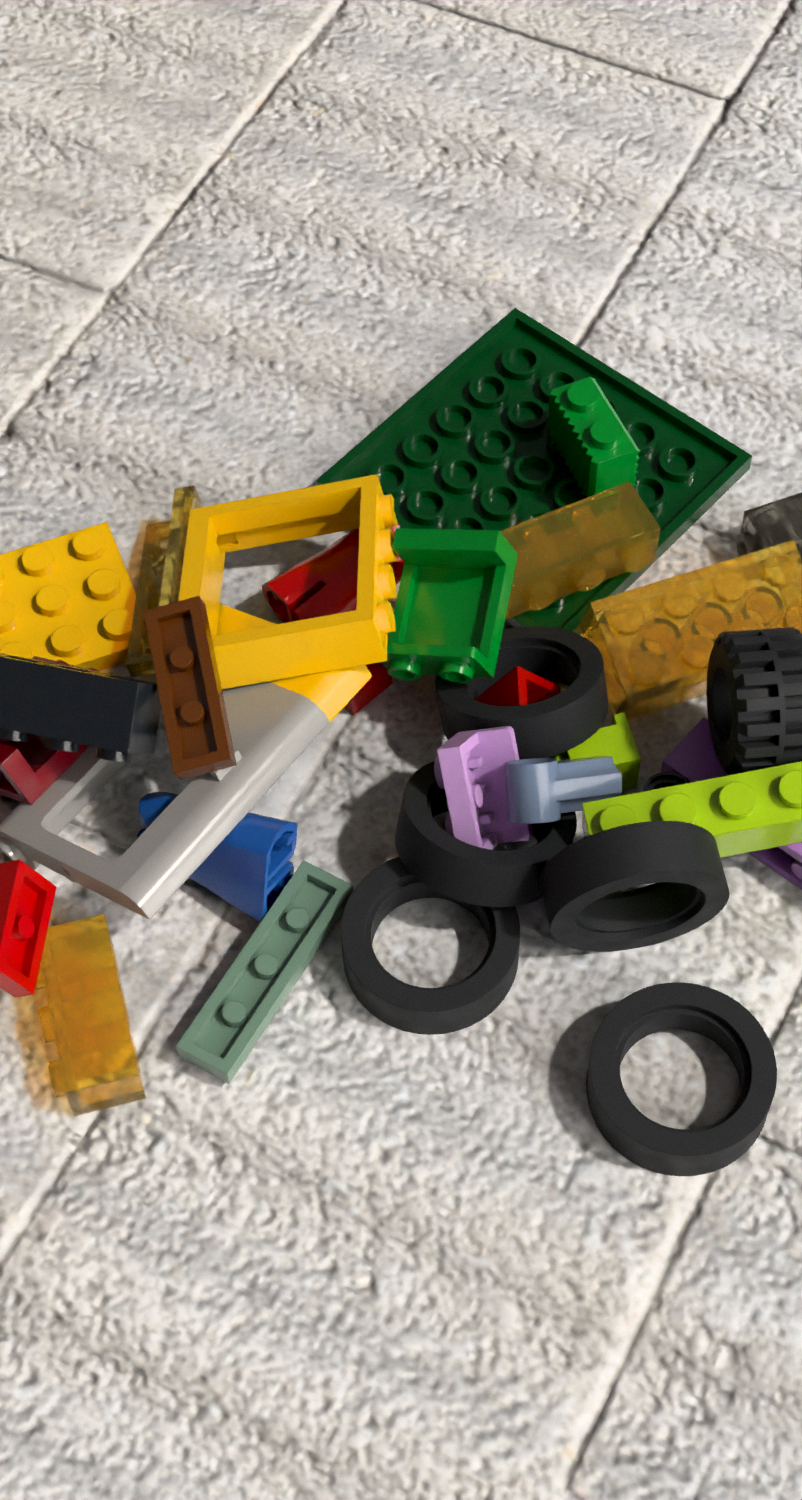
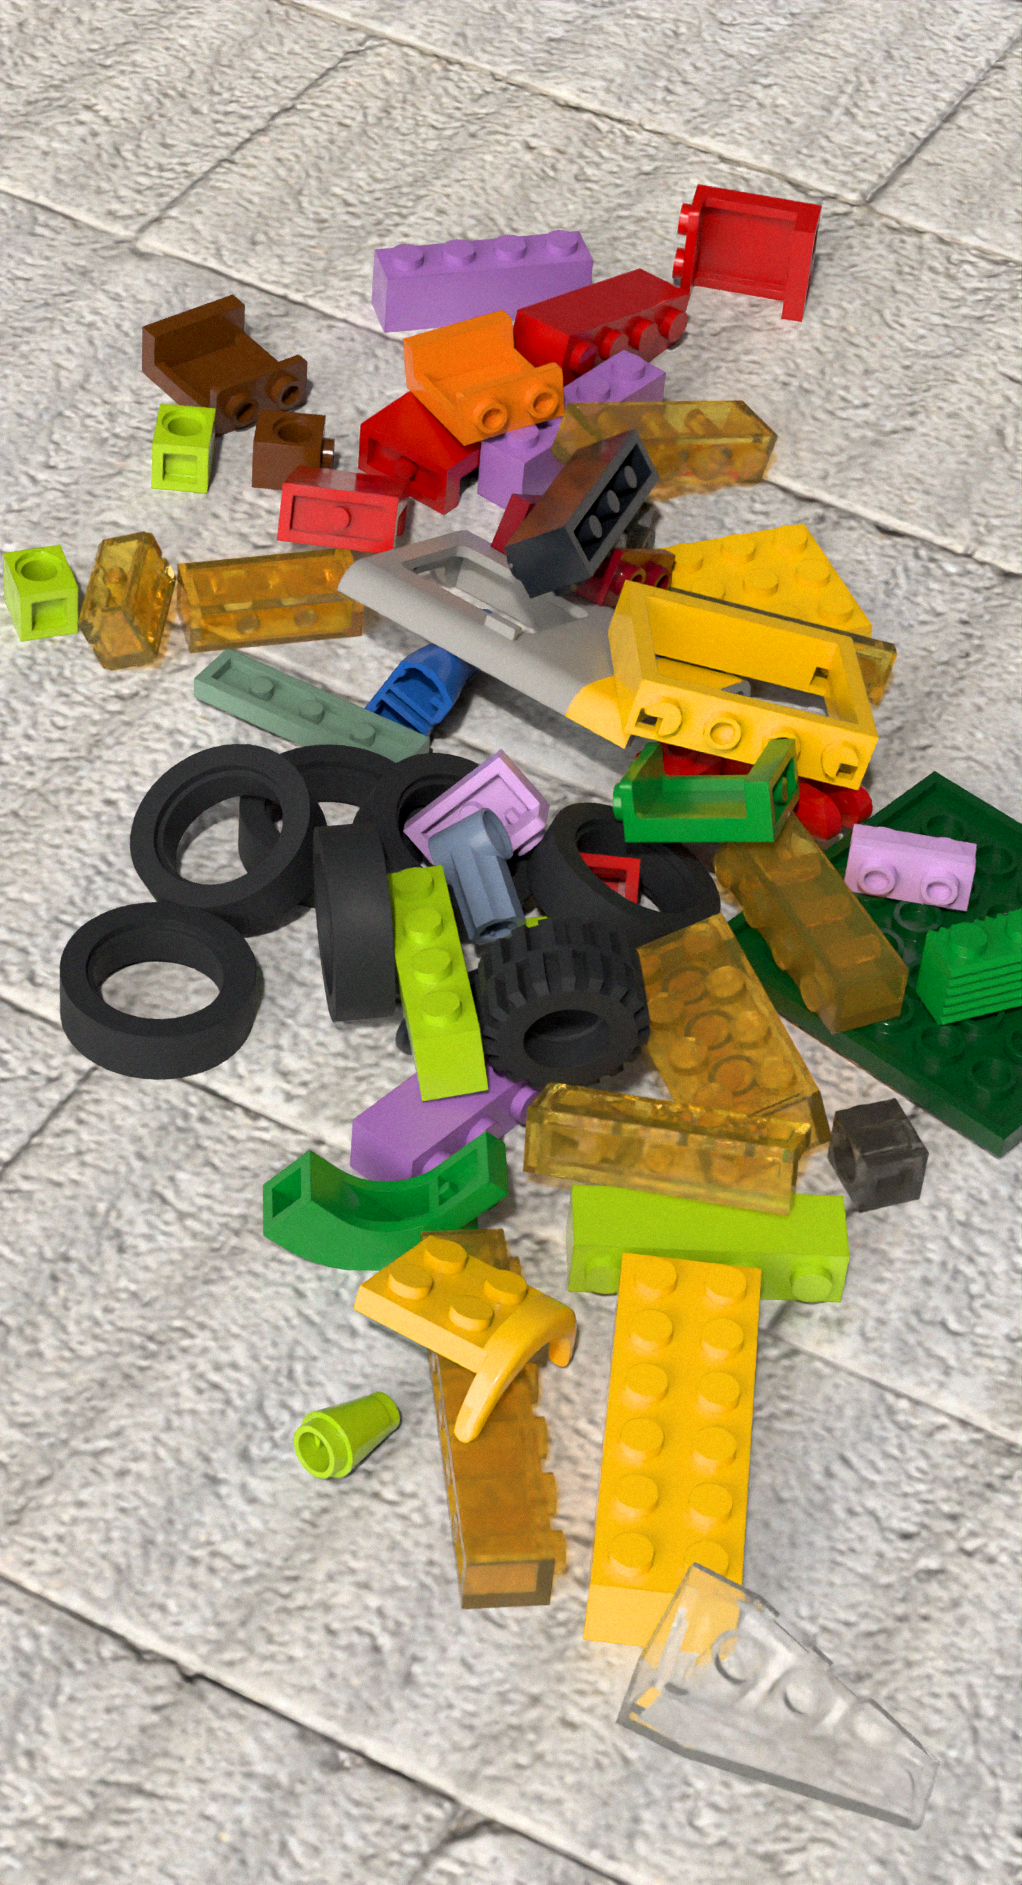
camera: 85 degrees right, 15 degrees down
(102, 1259) = (40, 593): none -> lime brick
(114, 1143) = (127, 601): none -> clear yellow brick
(189, 688) = (576, 579): reddish brown plate -> none
(458, 488) = (910, 867): none -> lavender bracket
(572, 997) = (201, 783): none -> black tyre

